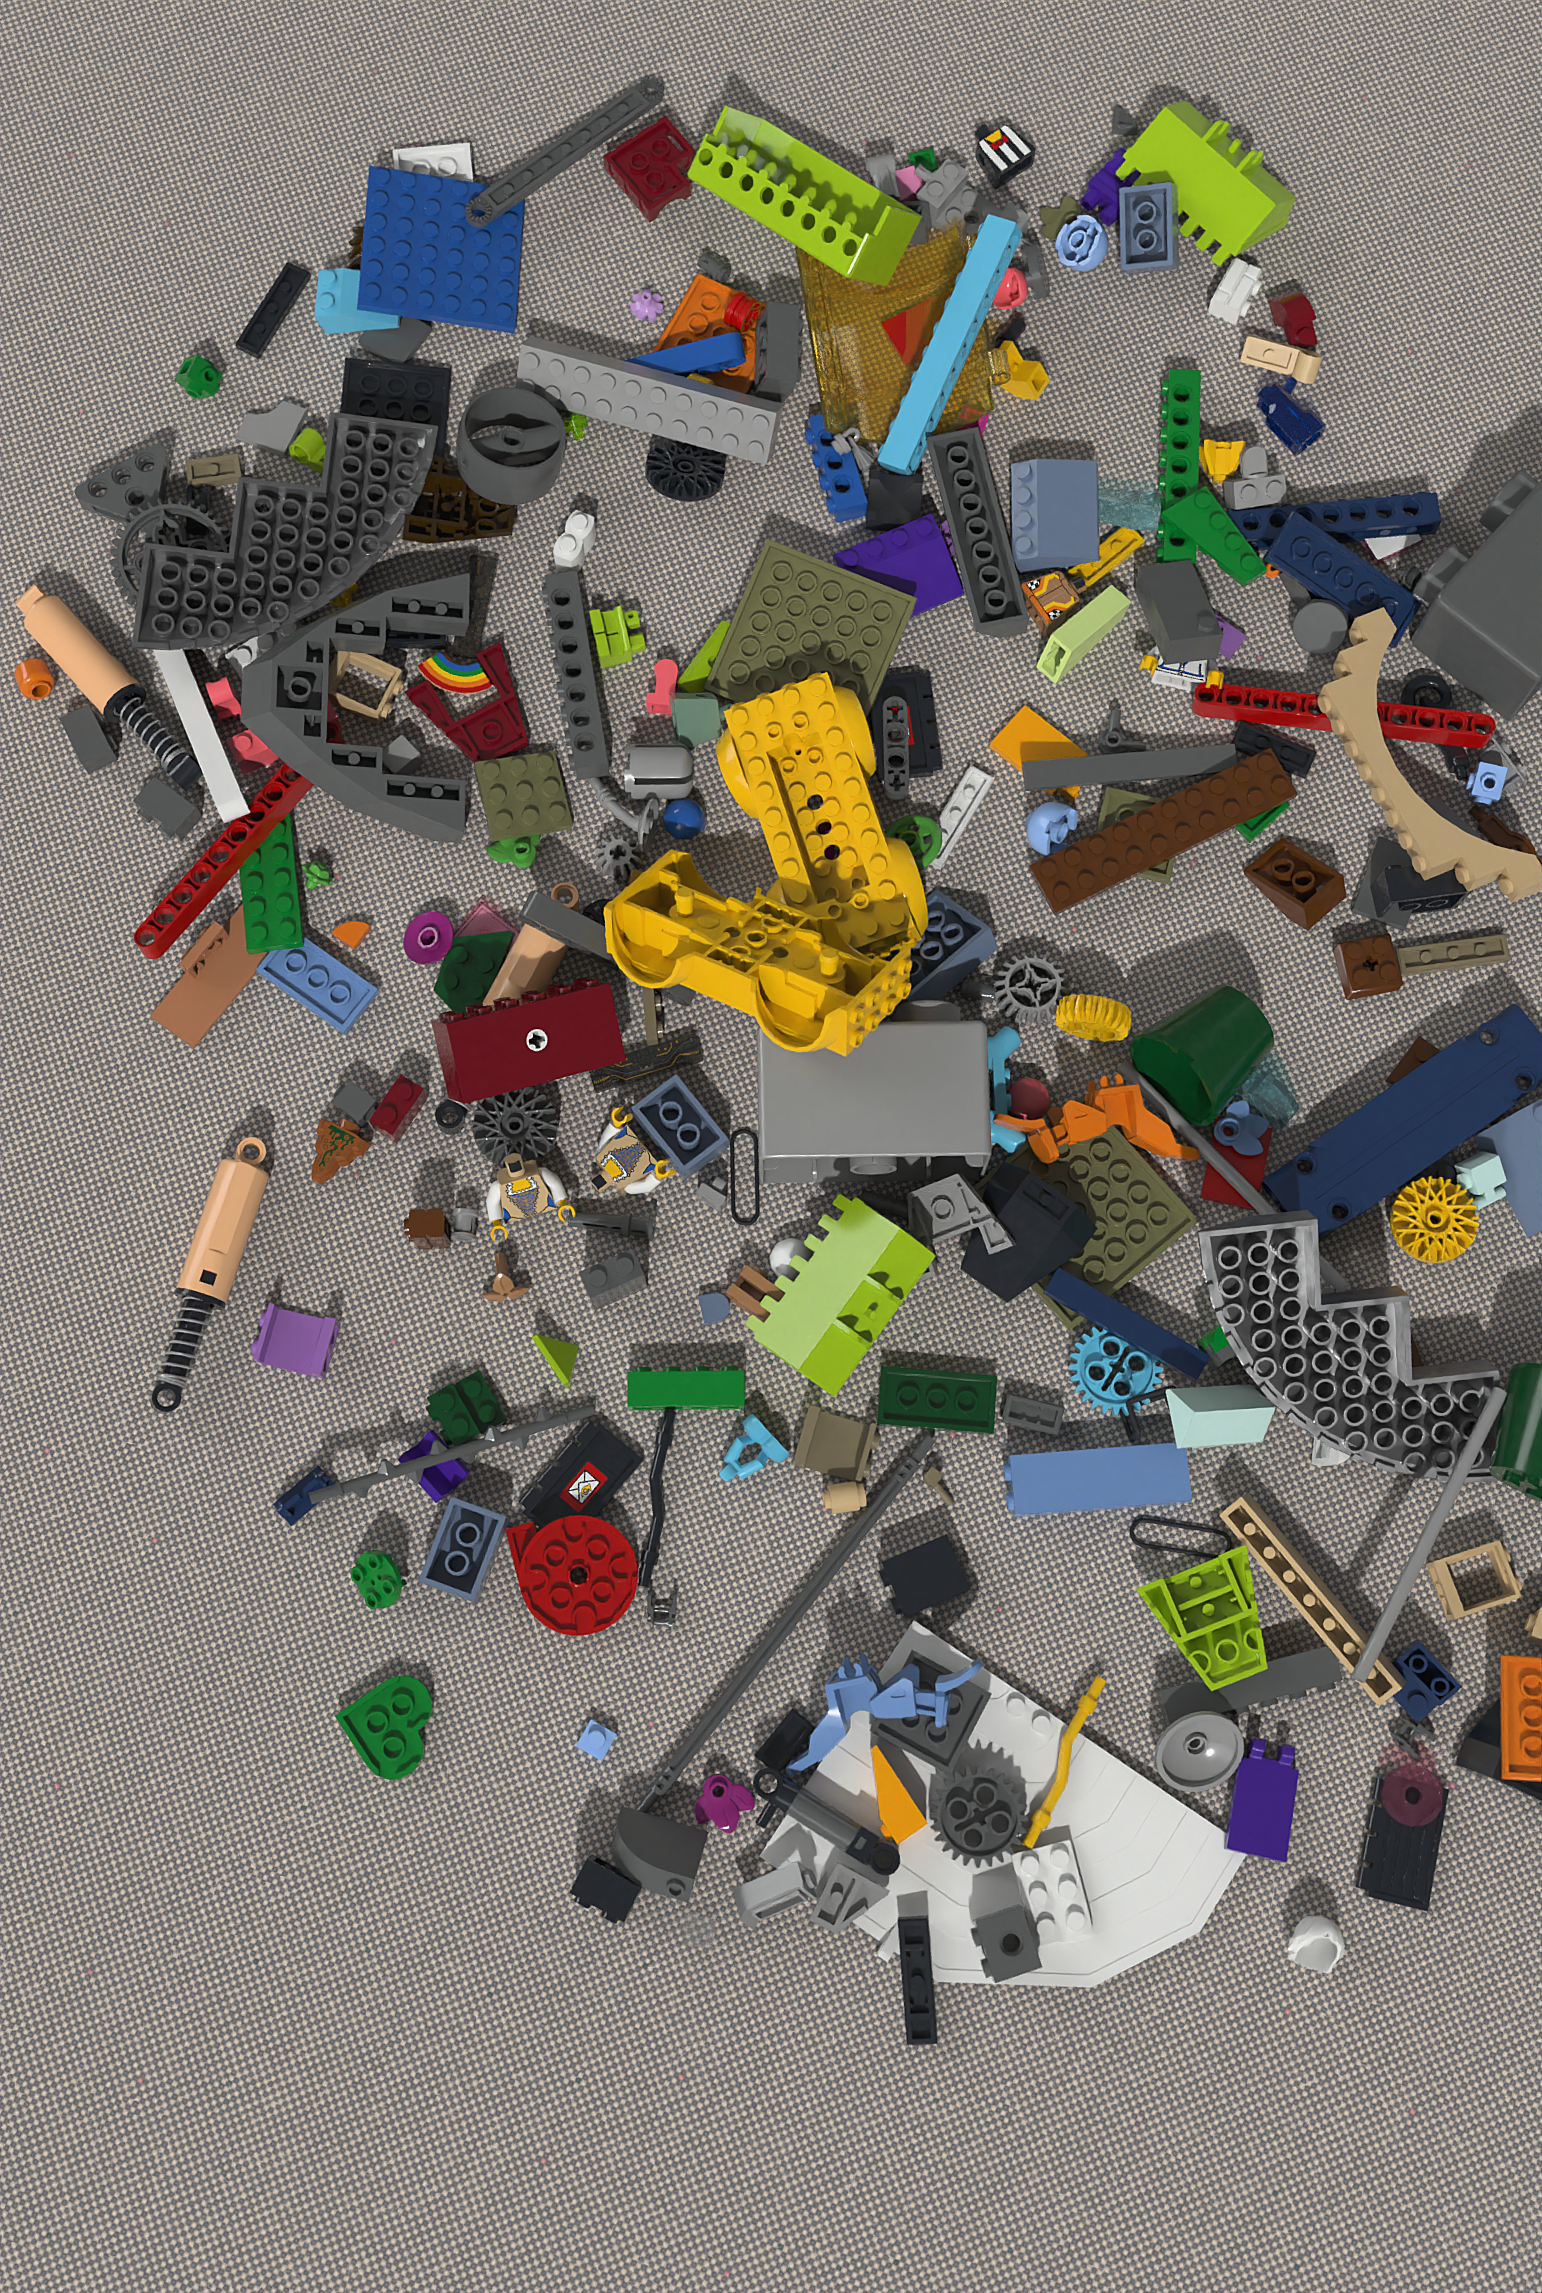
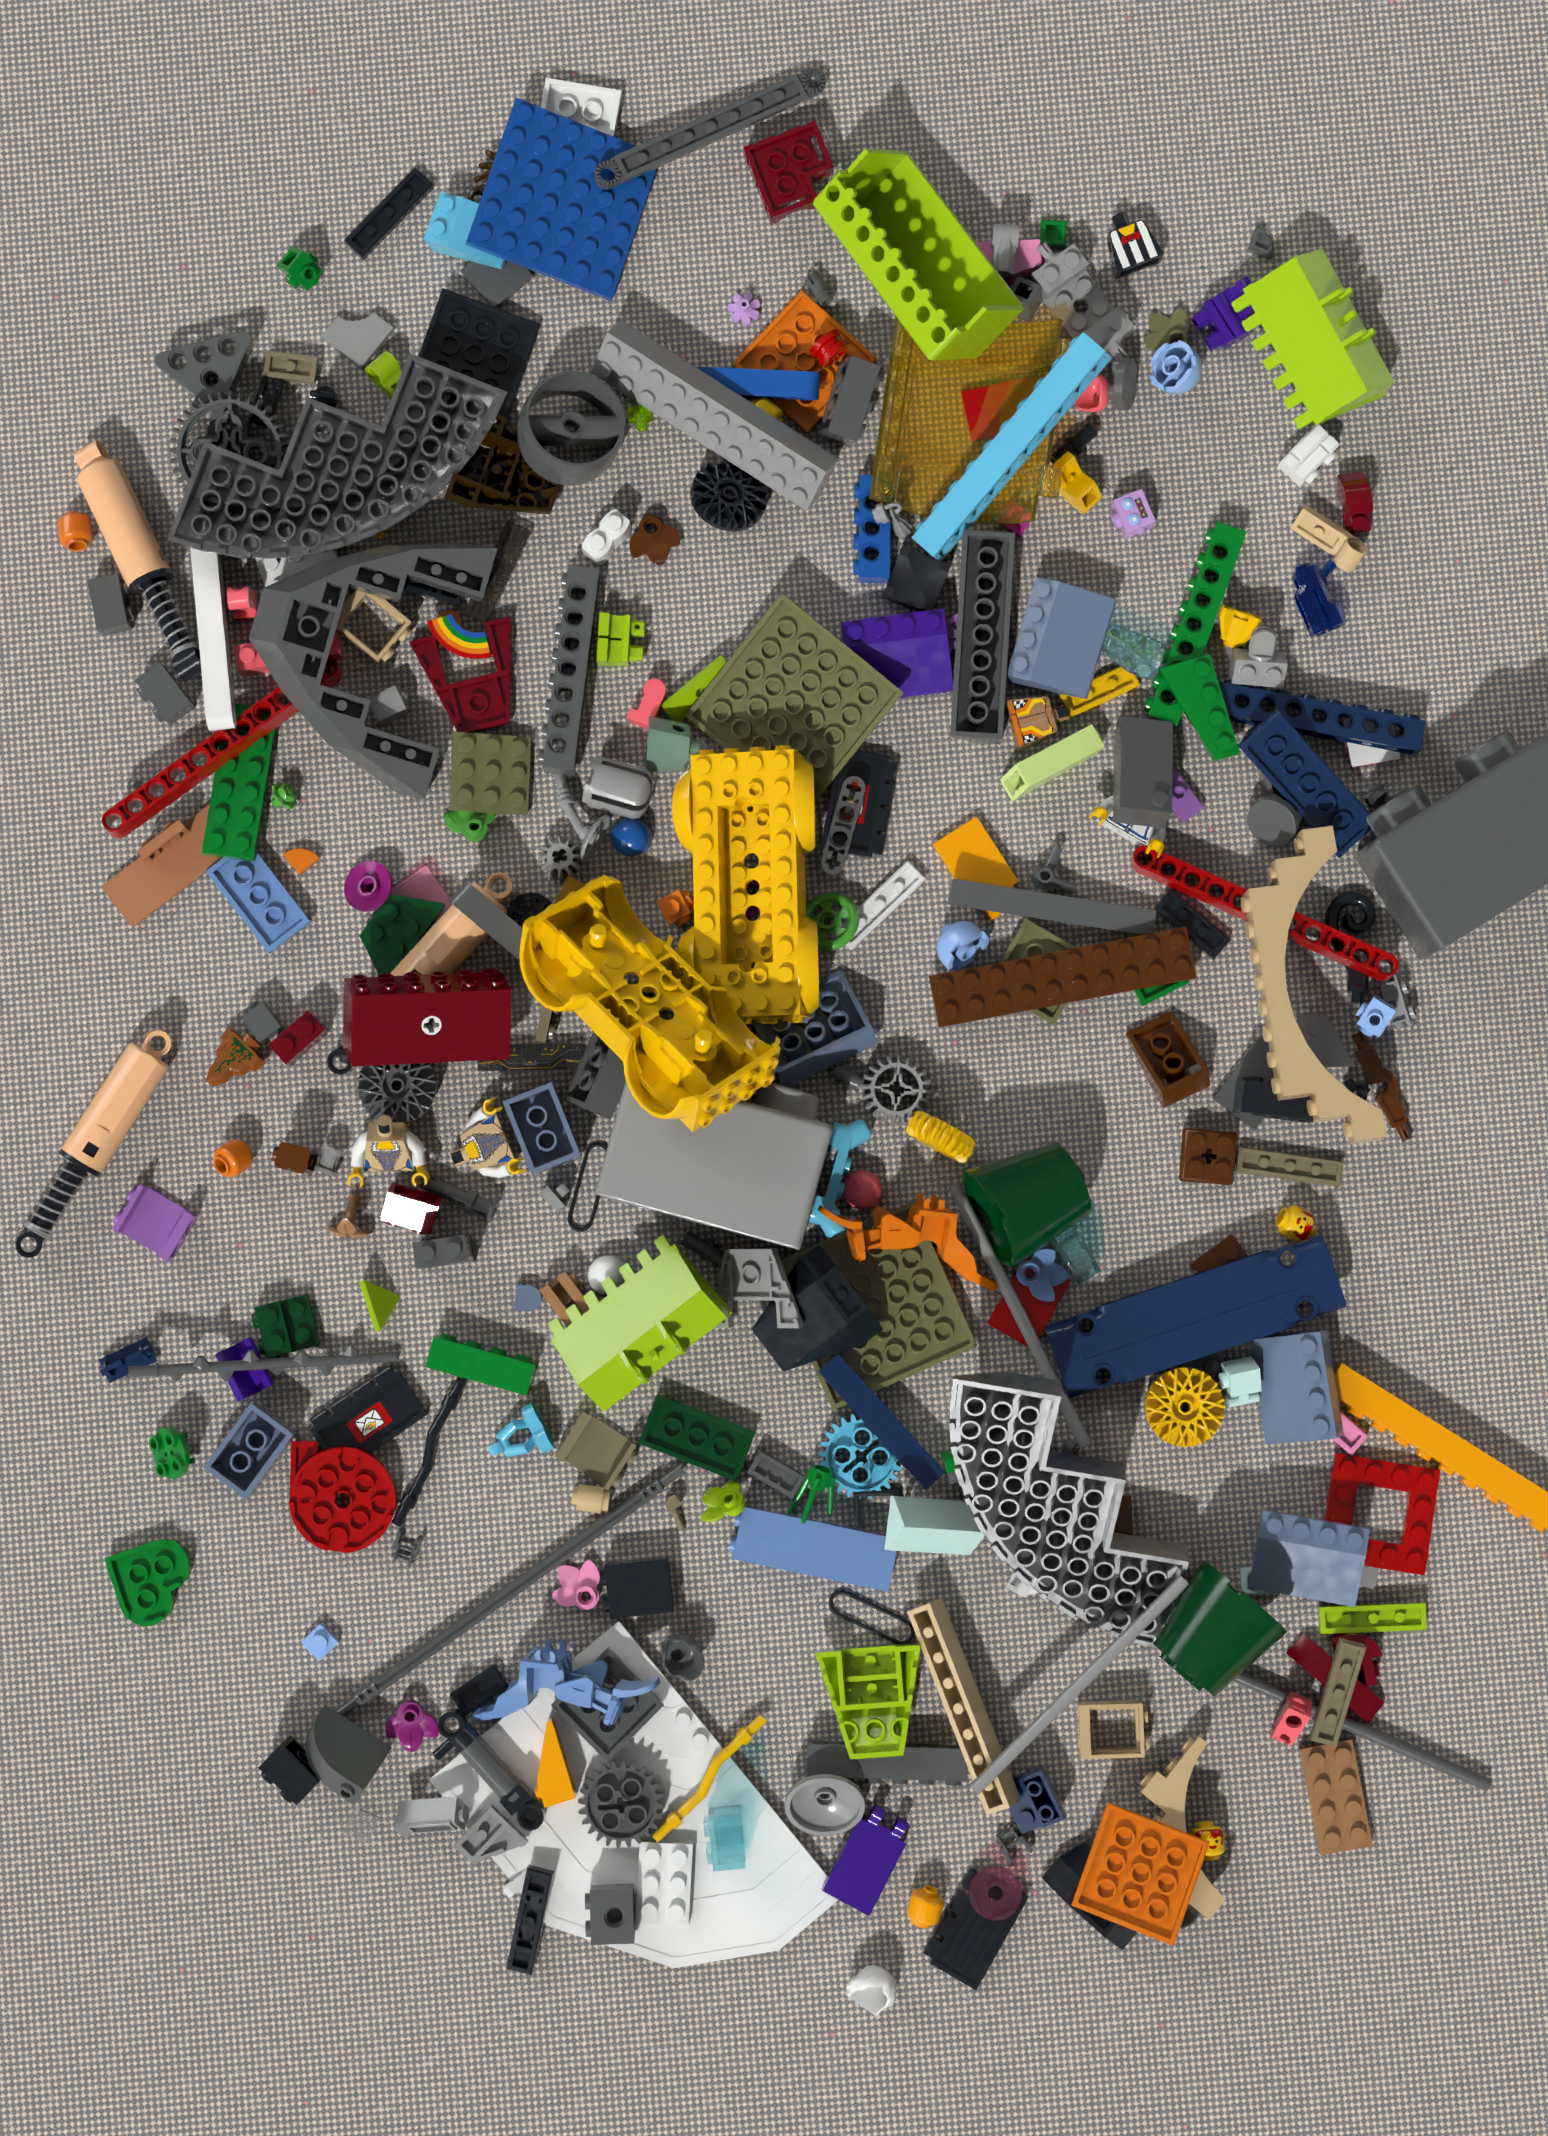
camera: 20 degrees right, 10 degrees up
(362, 1249) = (232, 1158): none -> orange head
(565, 1248) = (411, 1208): none -> brick
(622, 539) = (655, 543): none -> reddish brown plate
(725, 1052) = (597, 1080): none -> dark grey brick
(753, 870) = (677, 907): none -> orange brick
(854, 1593) = (575, 1582): none -> bright pink plate
(984, 1458) = (723, 1501): none -> lime plate
(995, 1637) = (682, 1657): none -> dark grey hair
(1081, 1401) = (819, 1479): none -> green plant
(1084, 387) = (1132, 514): none -> lavender head
(1106, 1818) = (726, 1836): none -> clear light blue brick
(1149, 228) = (1243, 373): sand blue brick -> none
(1342, 1834) = (925, 1906): none -> light orange head
(1479, 1005) = (1295, 1223): none -> yellow head

